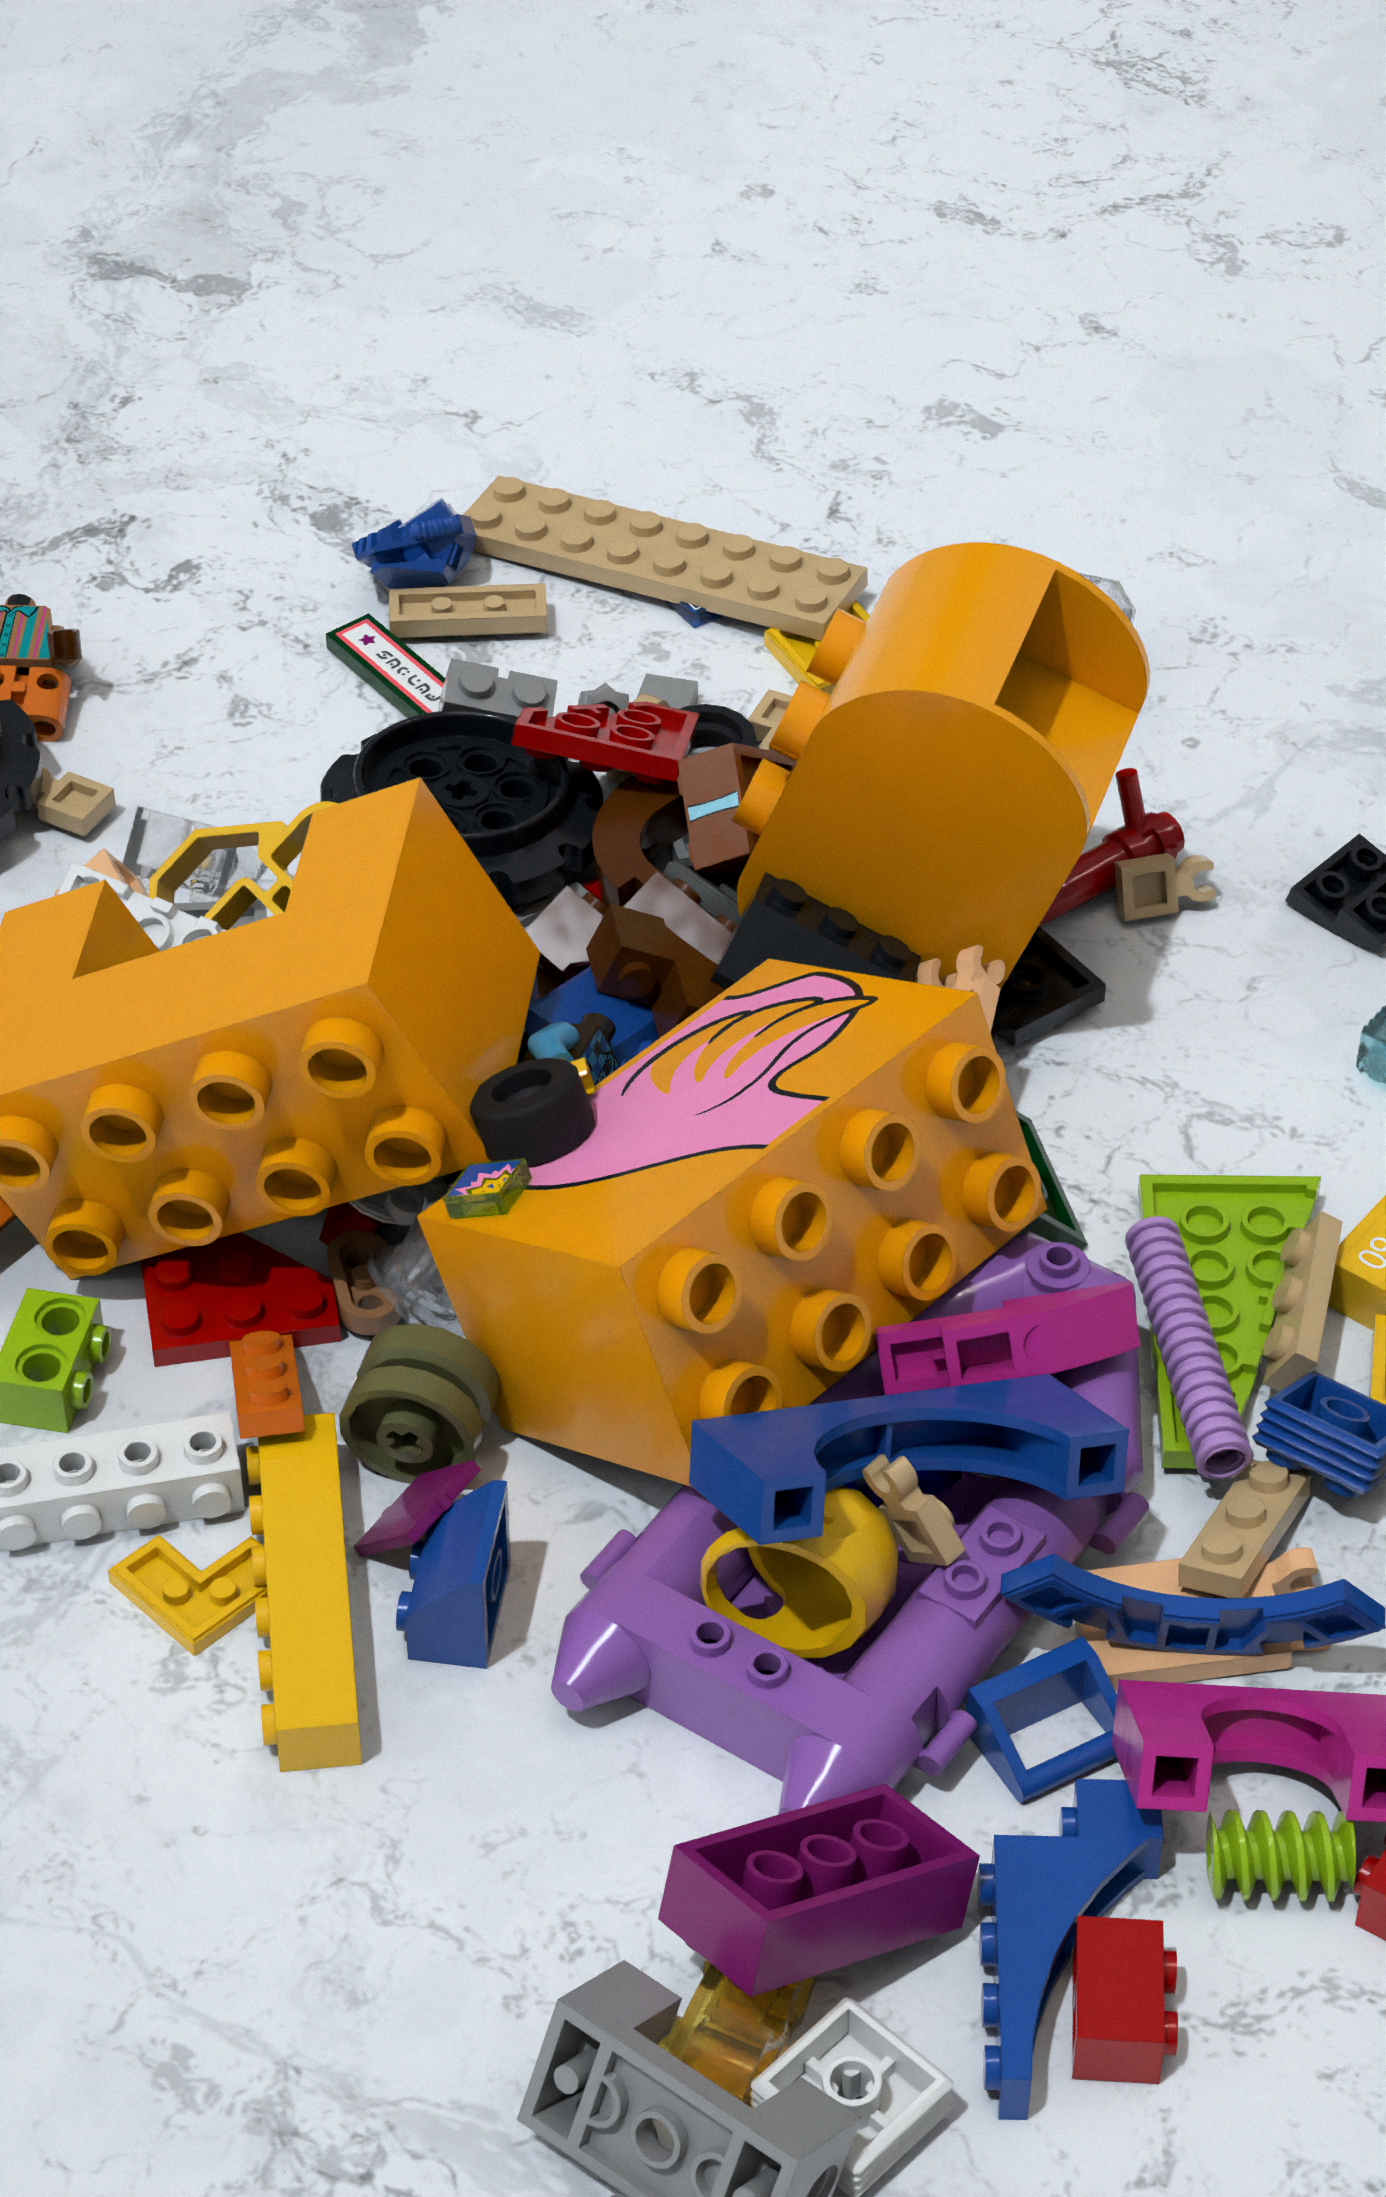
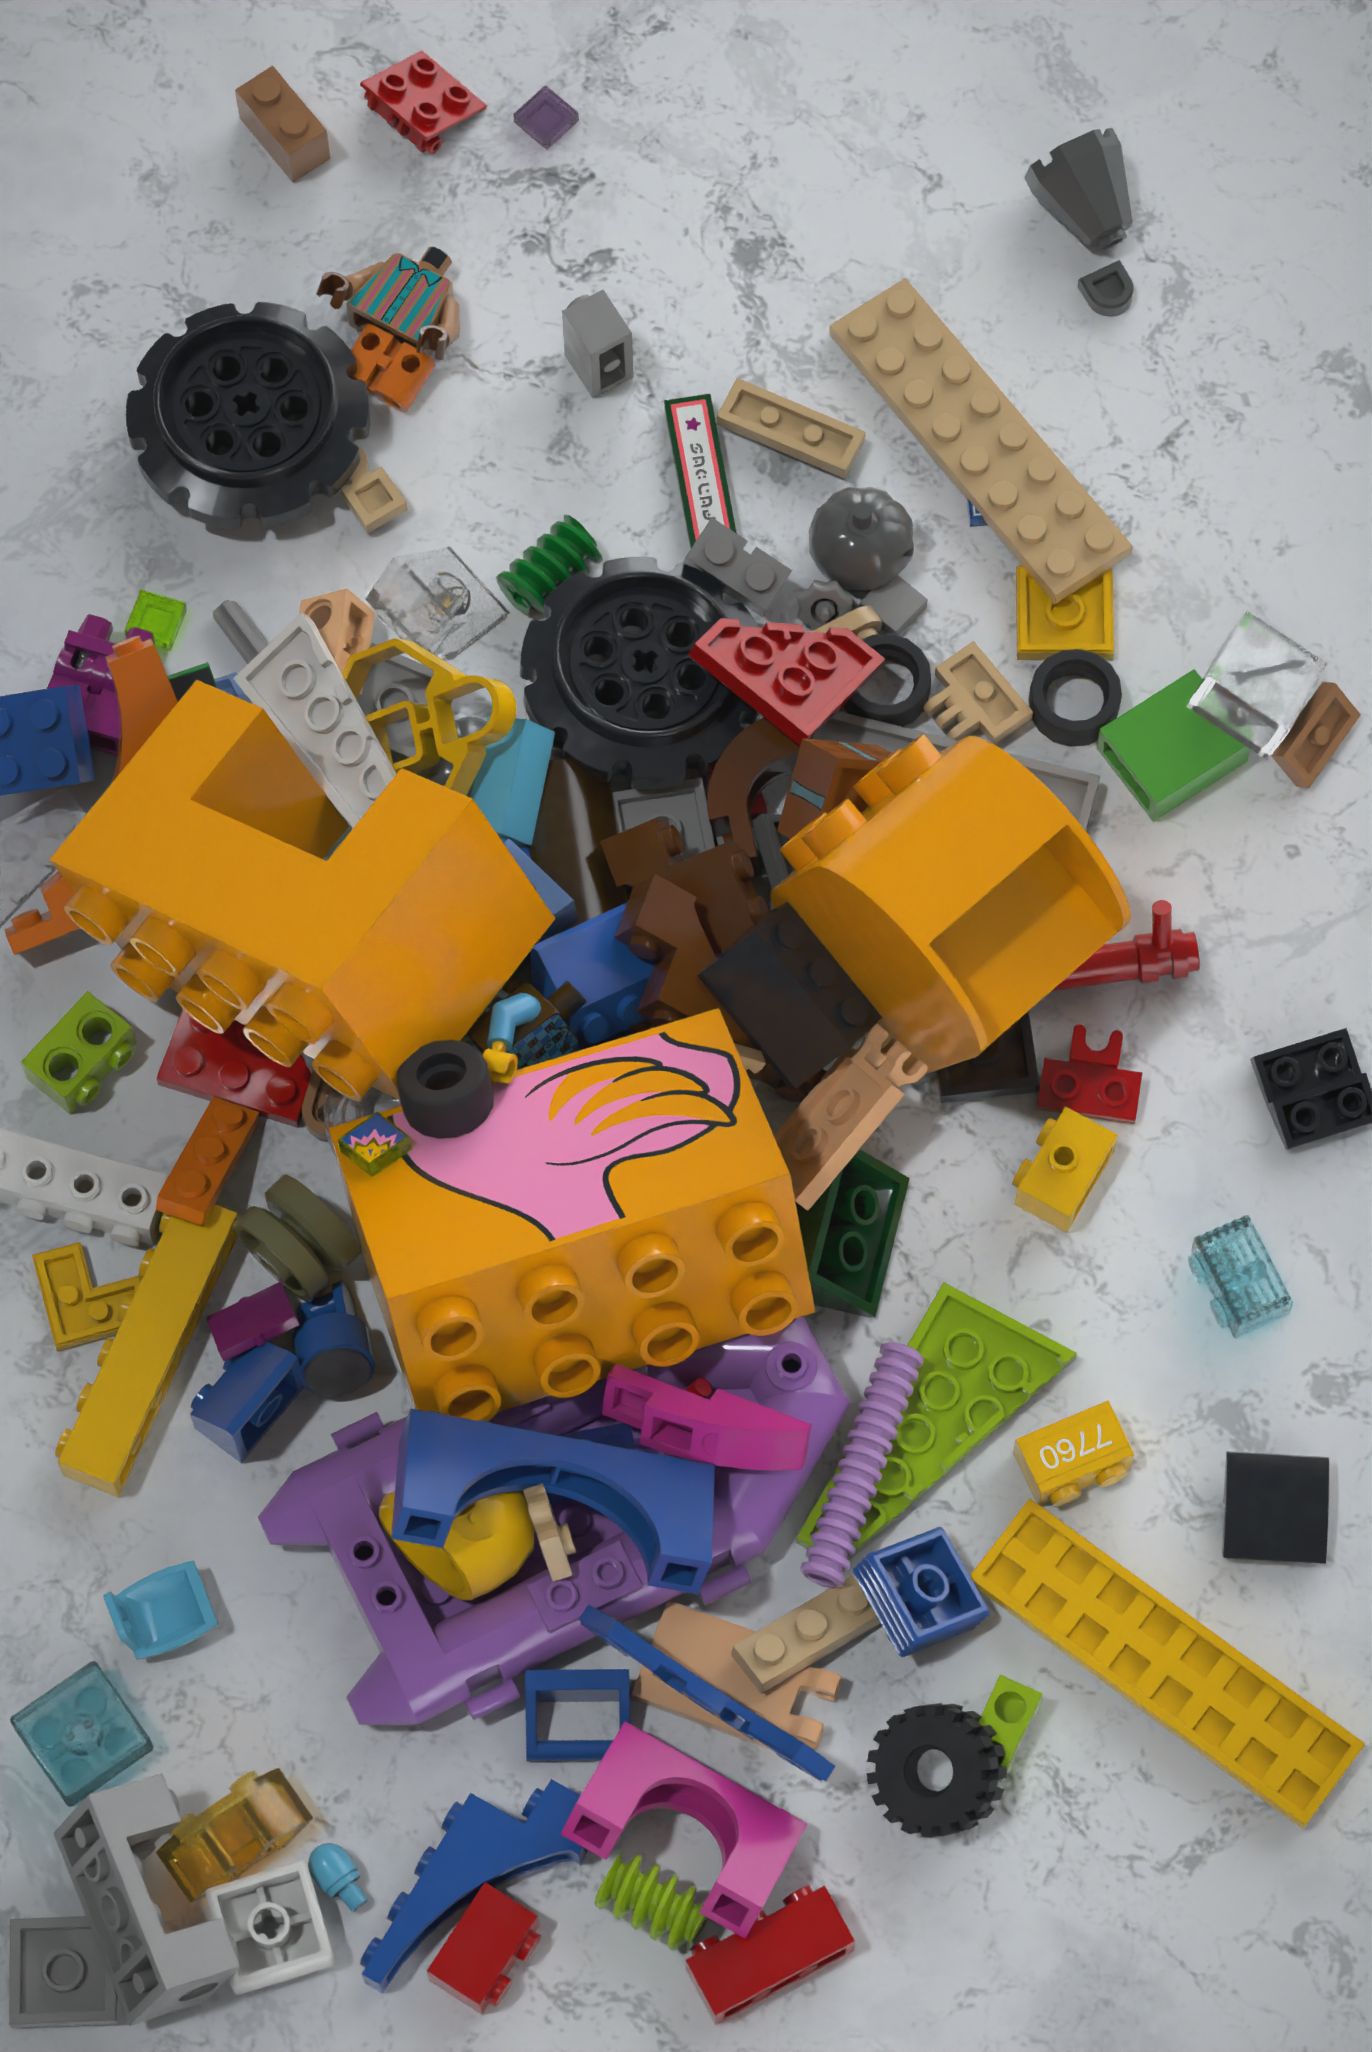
camera: 30 degrees right, 25 degrees up
(58, 487) = (546, 117): none -> clear purple tile
(233, 600) = (597, 343): none -> light grey brick
(296, 775) = (548, 564): none -> green piece
(422, 550) = (779, 346): blue helmet -> none
(442, 2008) = (86, 1700): none -> clear light blue brick
(498, 1832) = (162, 1611): none -> medium azure piece
(544, 1492) = (333, 1344): none -> blue piece
(600, 645) = (861, 538): none -> dark grey piece
(623, 353) = (1086, 187): none -> dark grey cone
(694, 427) = (1108, 289): none -> dark grey tile
(817, 1888) = (322, 1780): magenta brick -> none
(895, 2007) = (336, 1874): none -> medium azure cylinder
(1147, 970) = (1091, 1081): none -> red plate
(1153, 884) = (1145, 1003): tan plate -> none
(1156, 634) = (1316, 734): none -> medium nougat plate
(1184, 1041) = (1064, 1169): none -> yellow brick
(1301, 1301) = (972, 1466): tan plate -> none

